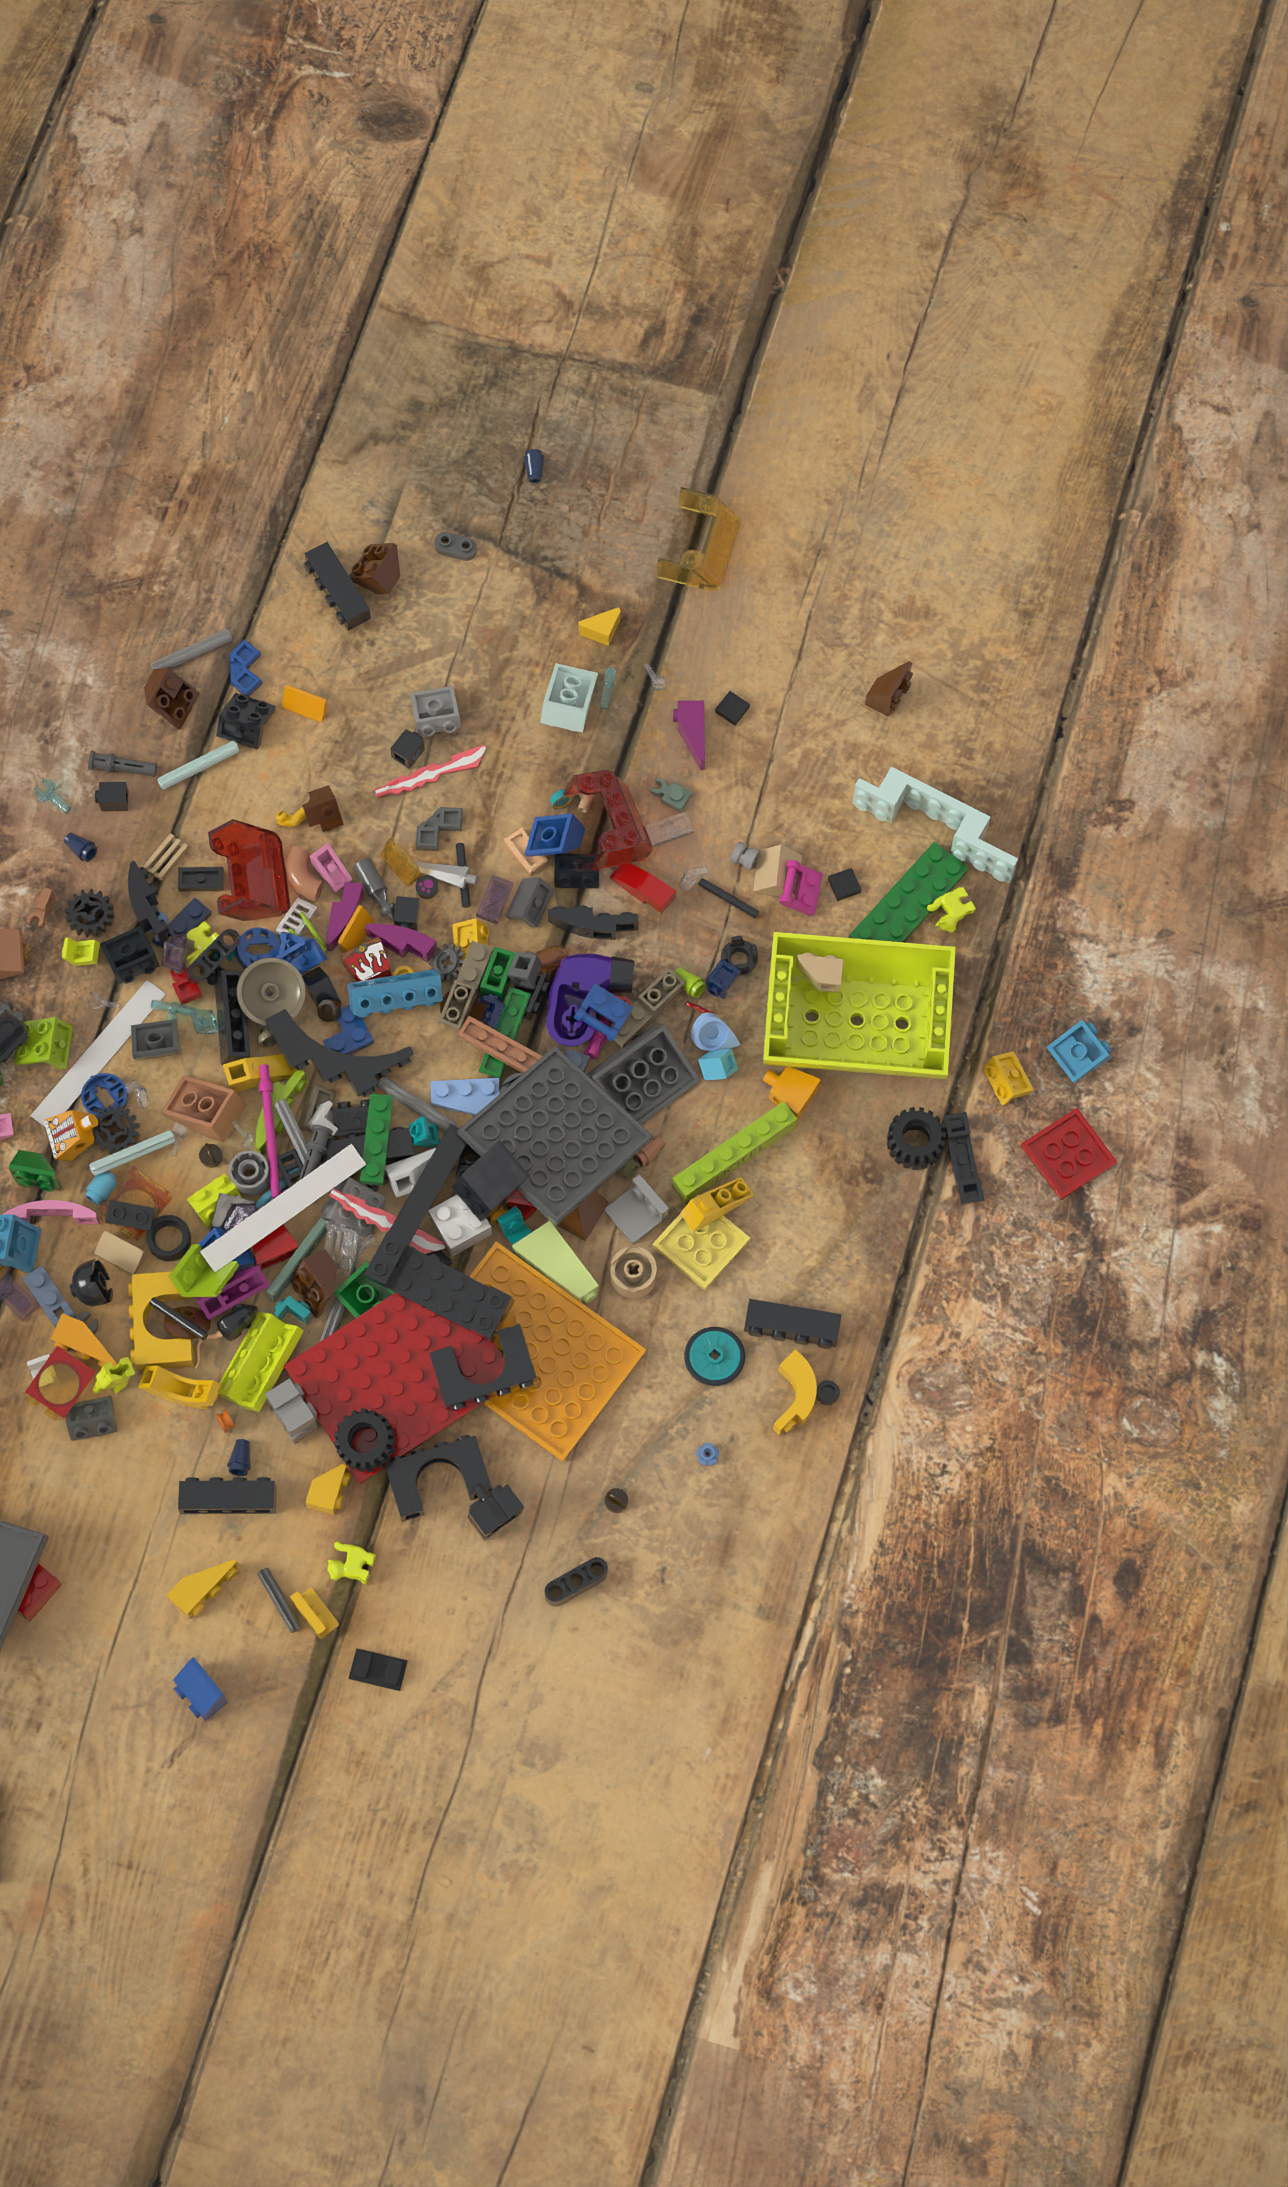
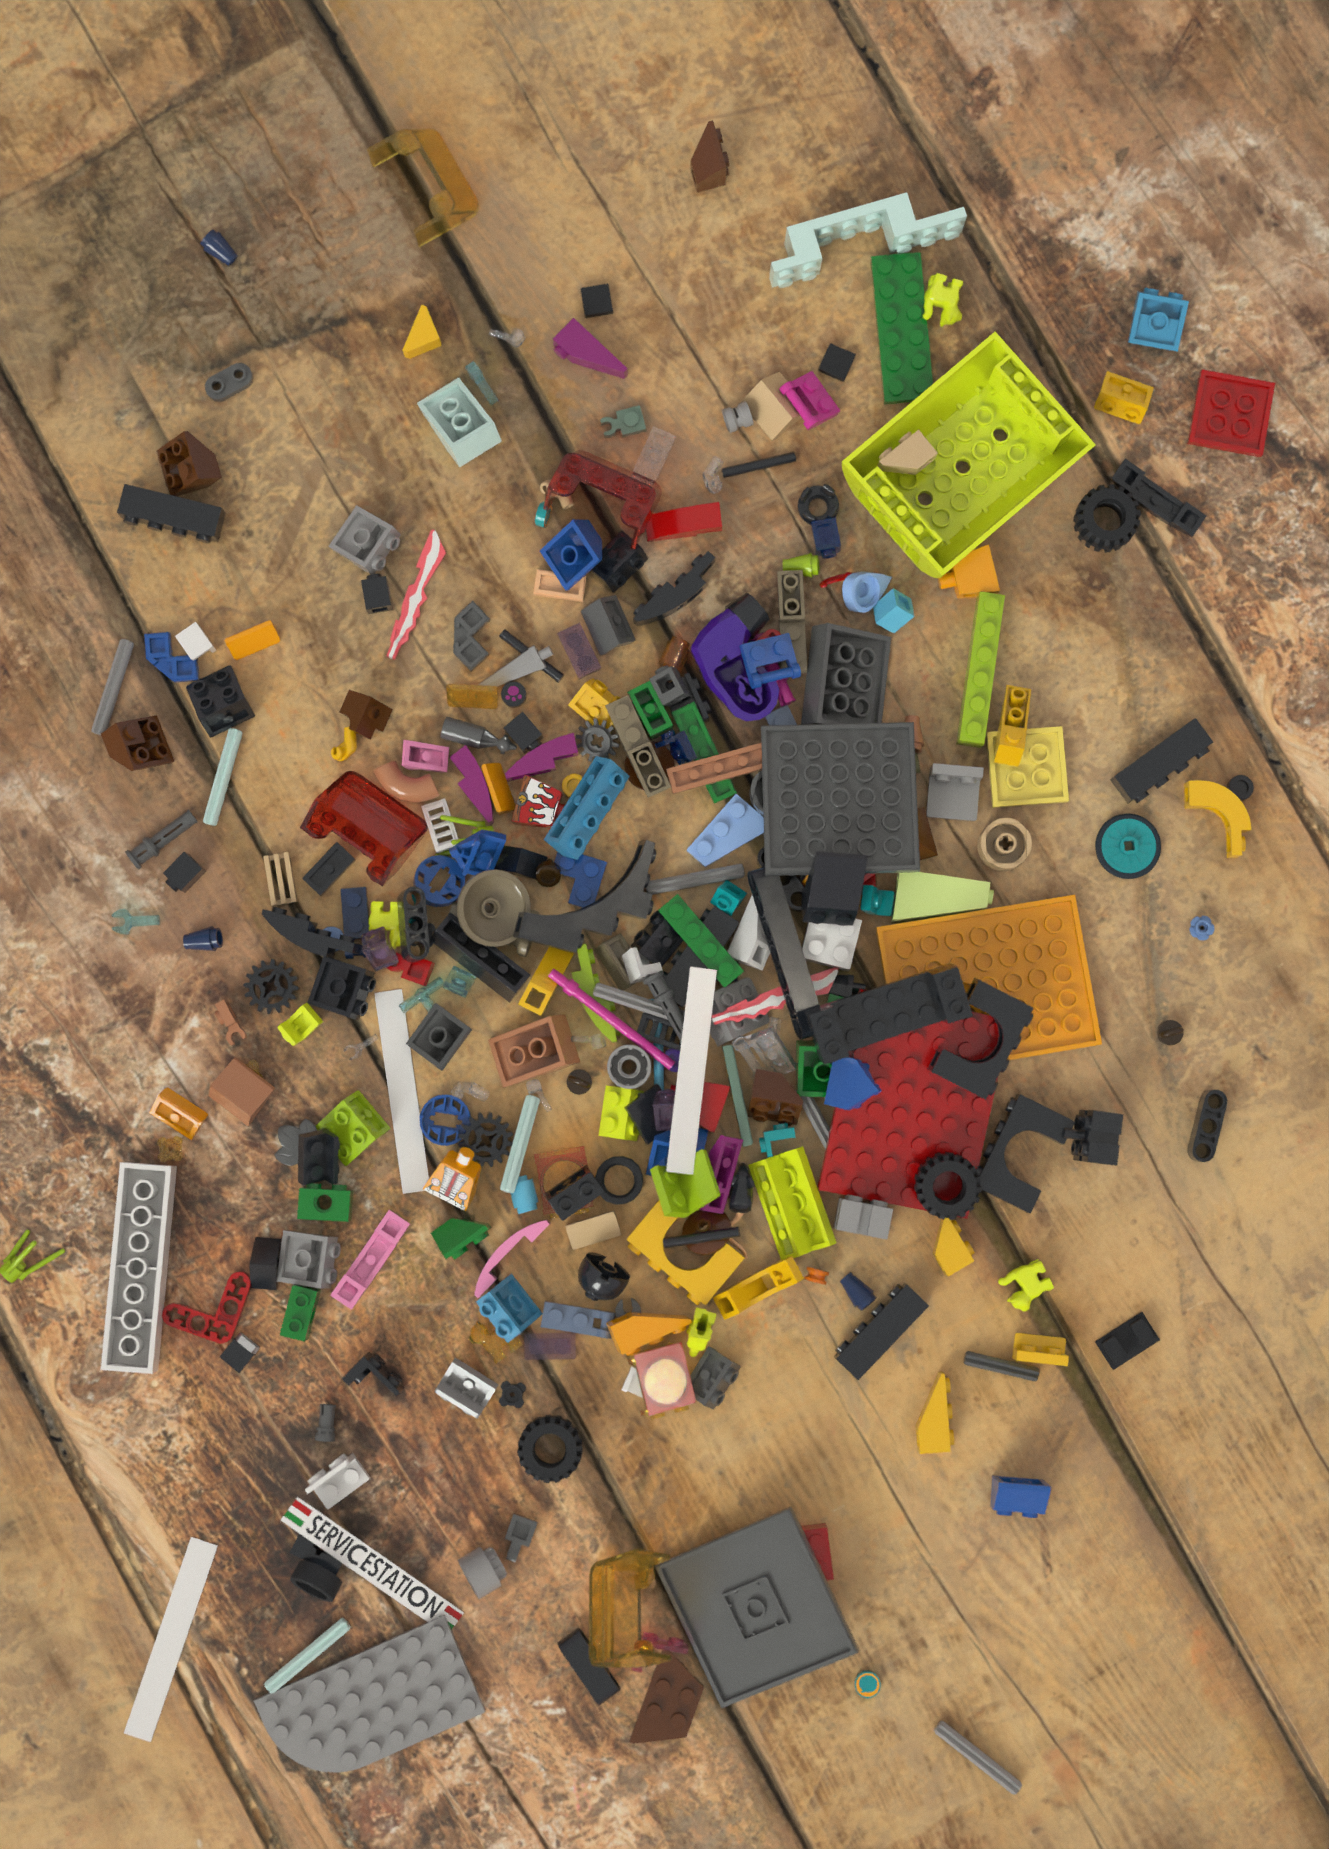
camera: 45 degrees left, 15 degrees up
(269, 670) = (194, 641): none -> white panel
(372, 1313) = (850, 1084): none -> blue slope

